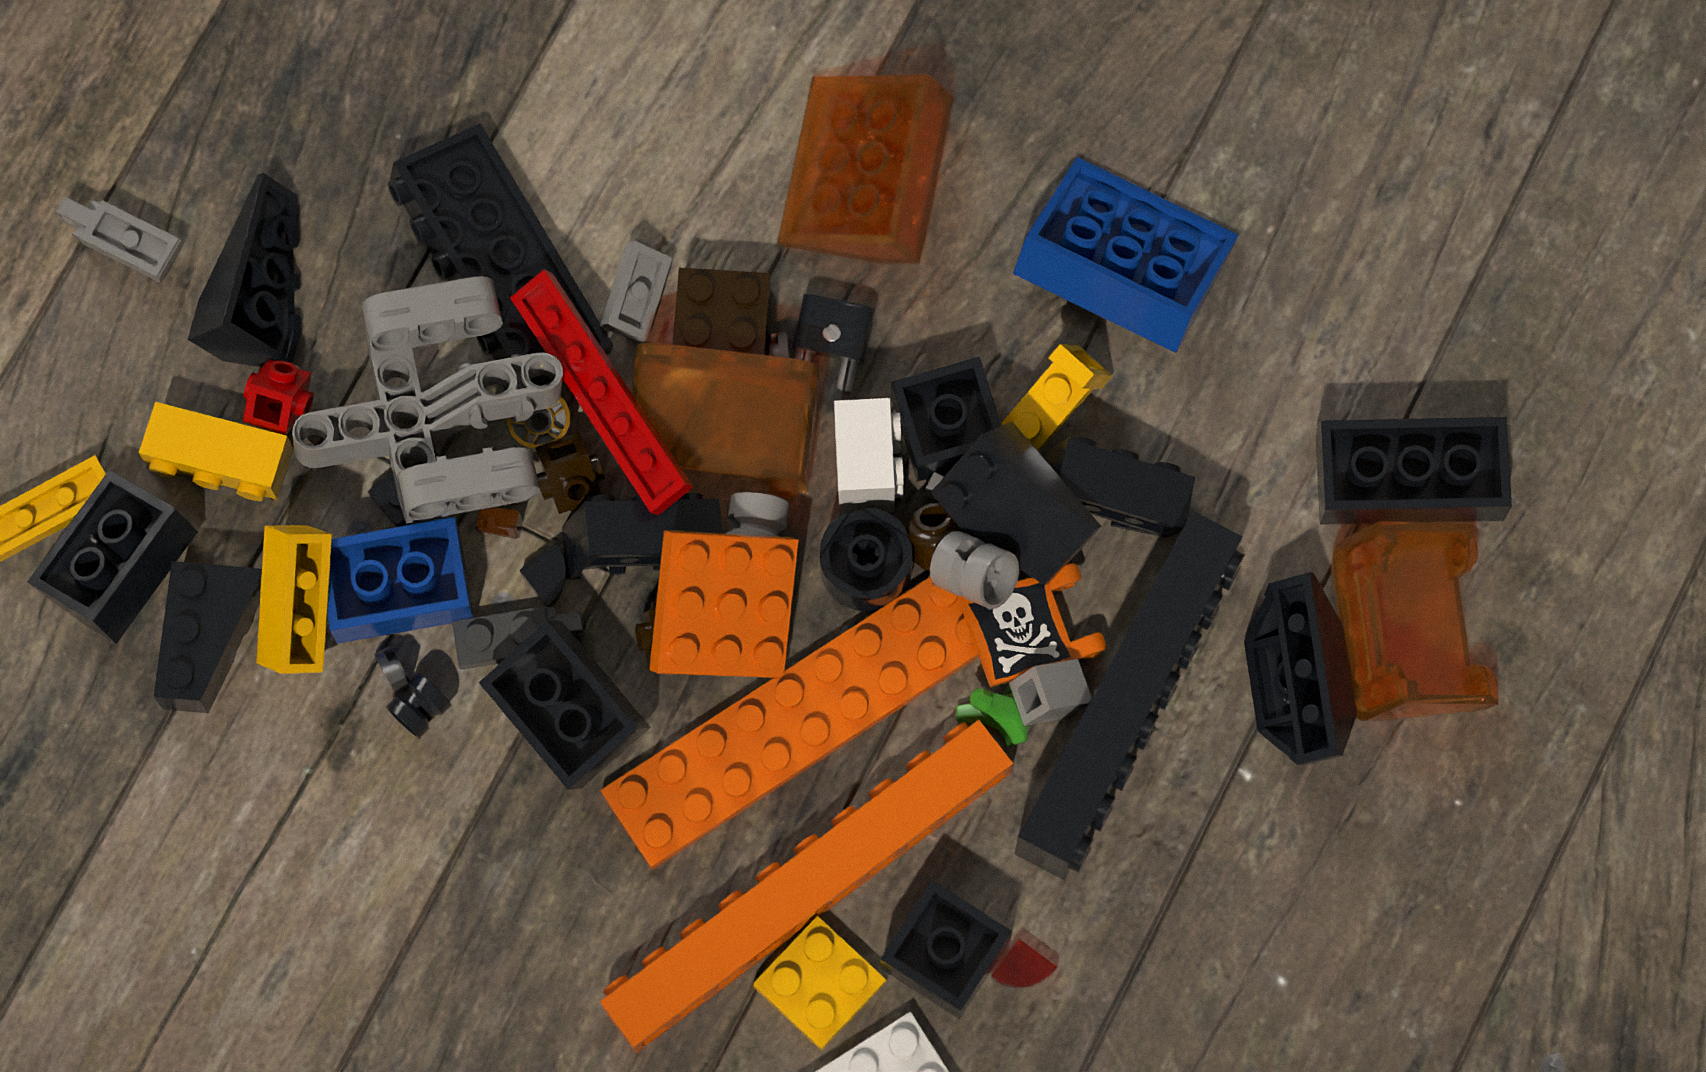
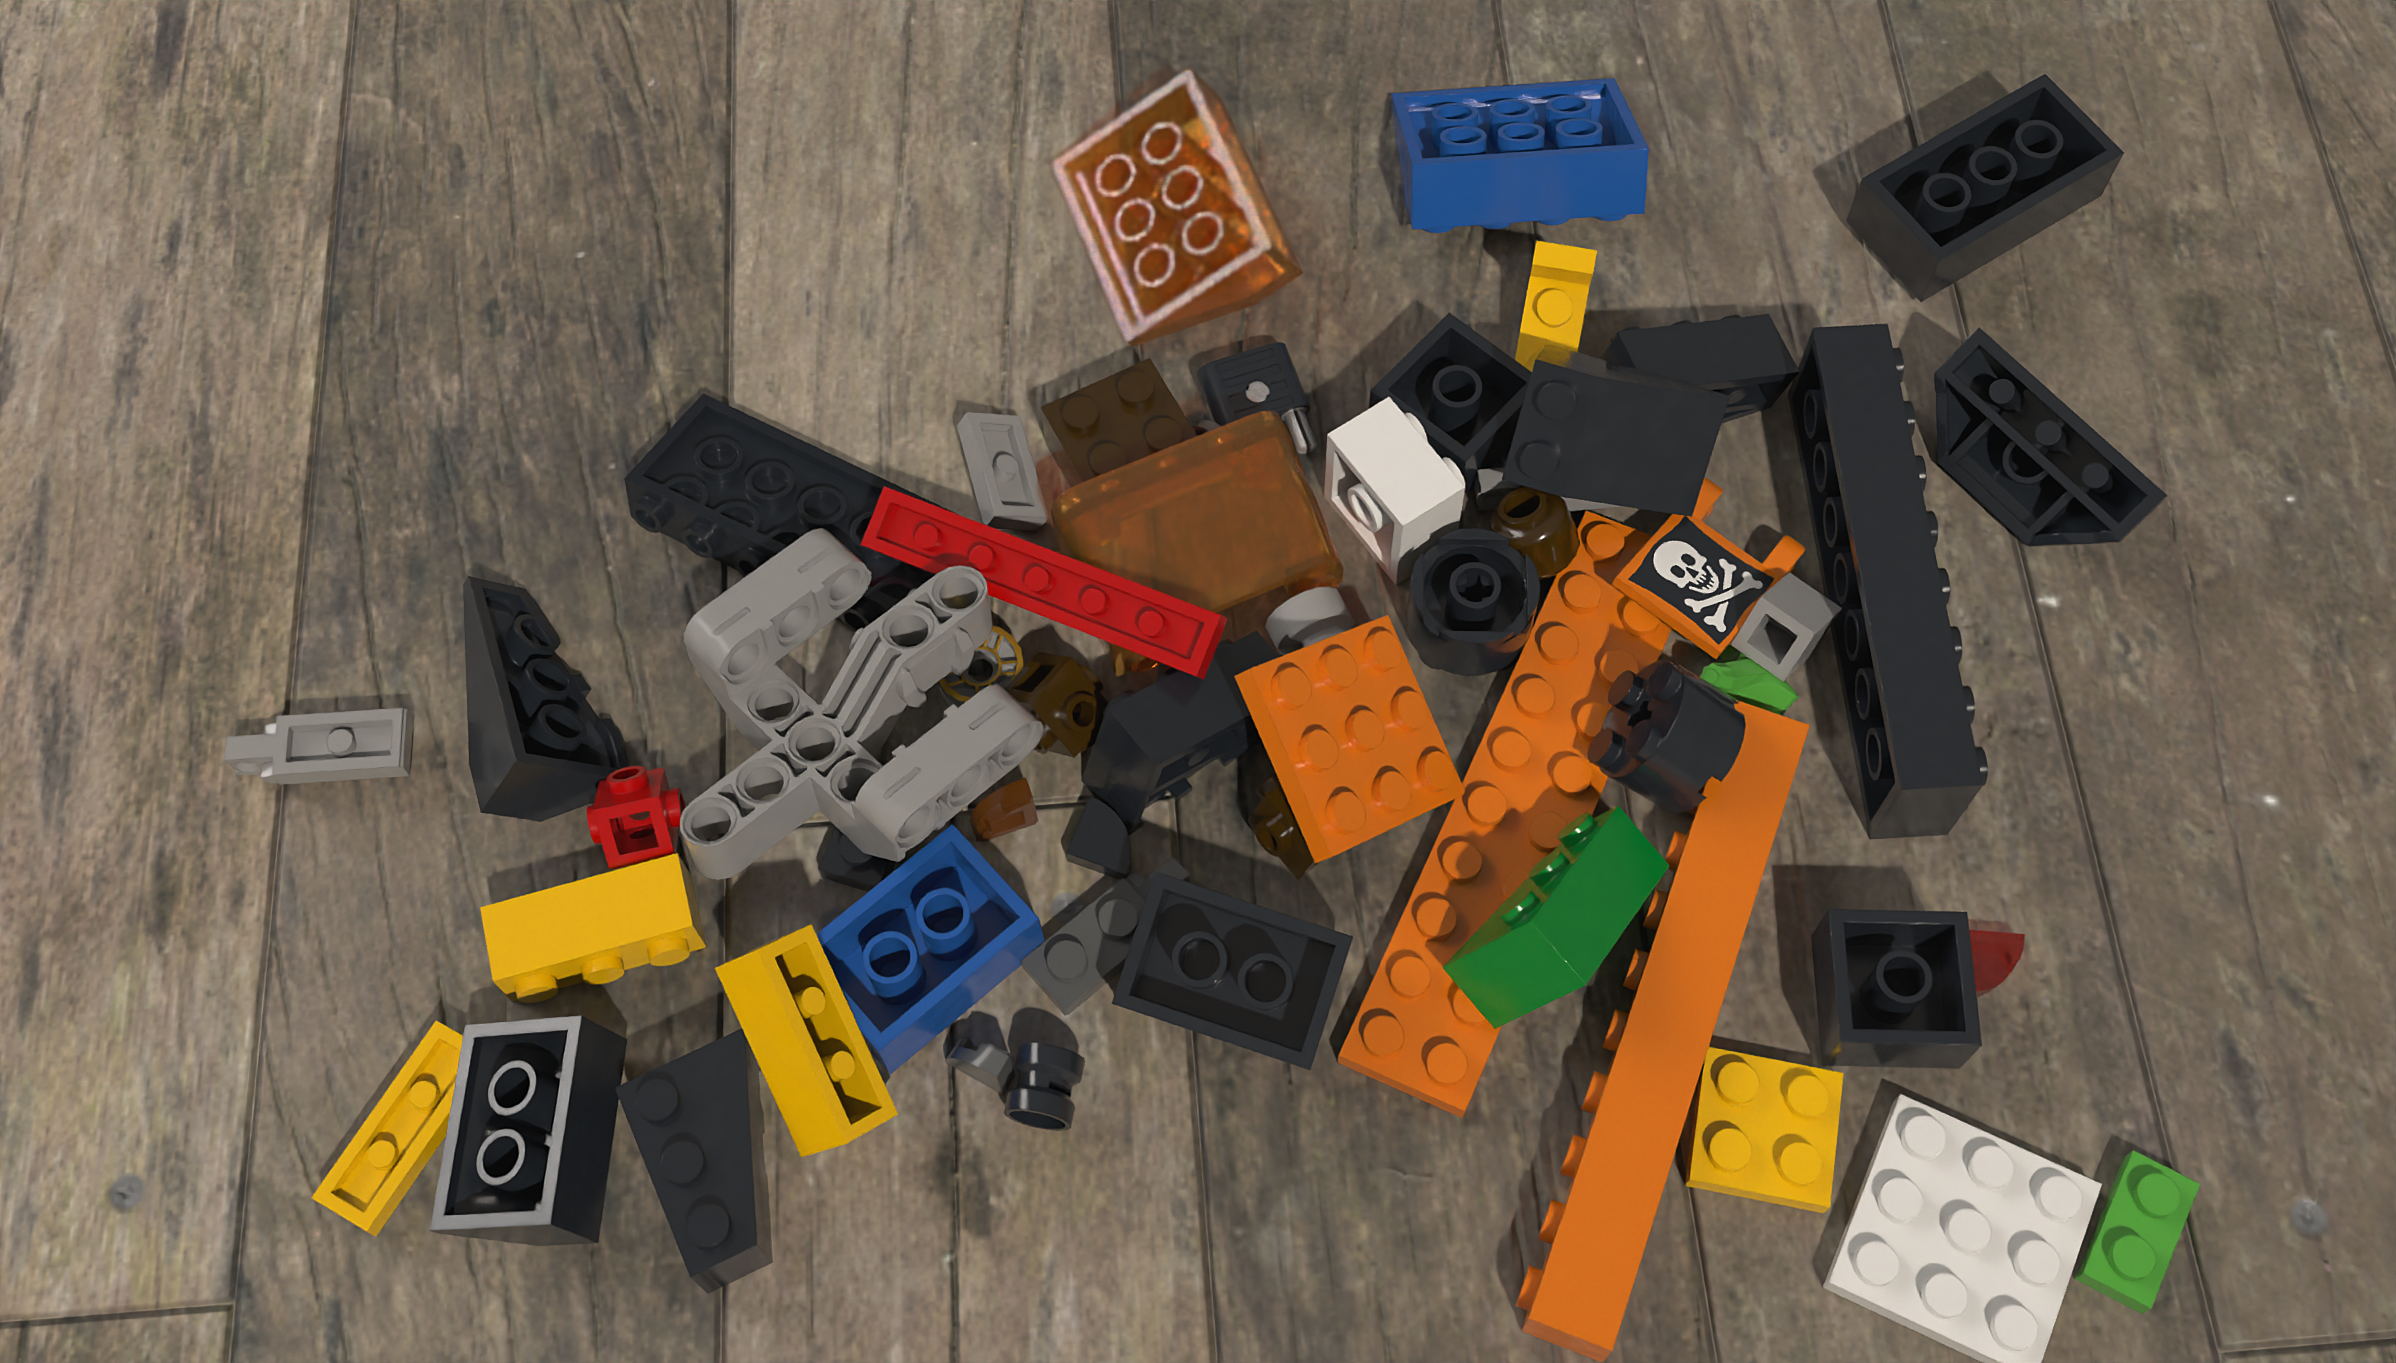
camera: 30 degrees left, 10 degrees down
(776, 788) = (1559, 919): none -> green wedge
(918, 717) = (1667, 735): none -> black brick
(974, 570) = (1604, 533): light grey wheel -> none
(1407, 620) = (2091, 343): clear orange windscreen -> none

